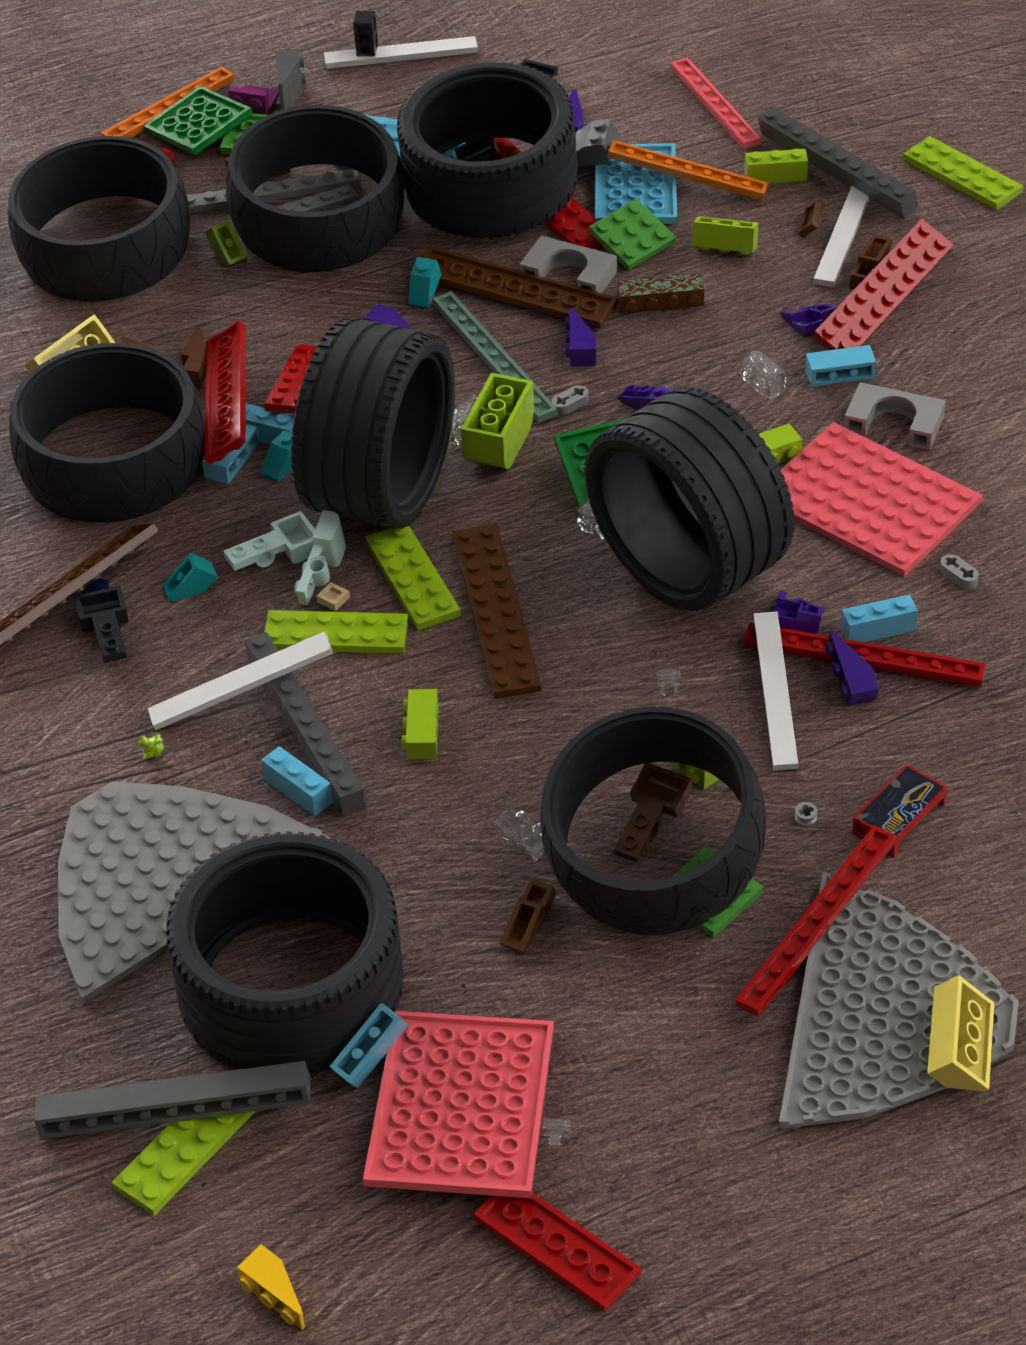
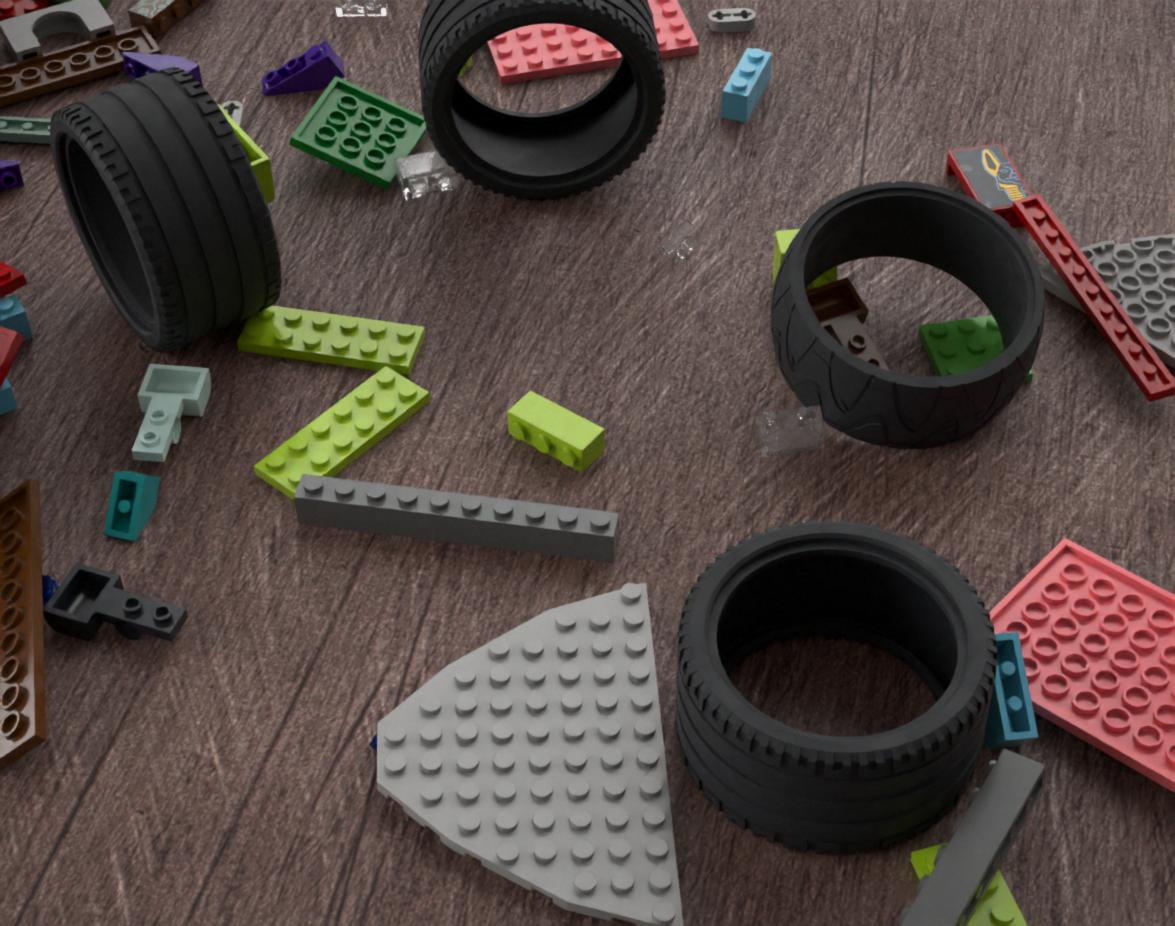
camera: 55 degrees left, 0 degrees up
(151, 747) = (351, 664): lime plant -> none
(240, 680) = (352, 534): white tile -> none
(278, 458) = (43, 342): teal slope -> none
(297, 781) = (538, 566): medium azure brick -> none
(326, 551) = (227, 368): light aqua plate -> none
(333, 596) = (294, 407): tan plate -> none
(496, 612) = (451, 306): reddish brown plate -> none
(528, 915) = (899, 486): reddish brown slope -> none
(775, 691) = (746, 172): white tile -> none
(798, 614) = (683, 127): dark purple slope -> none
(855, 674) = (794, 125): dark purple slope -> none
(881, 657) = (771, 116): red plate -> none

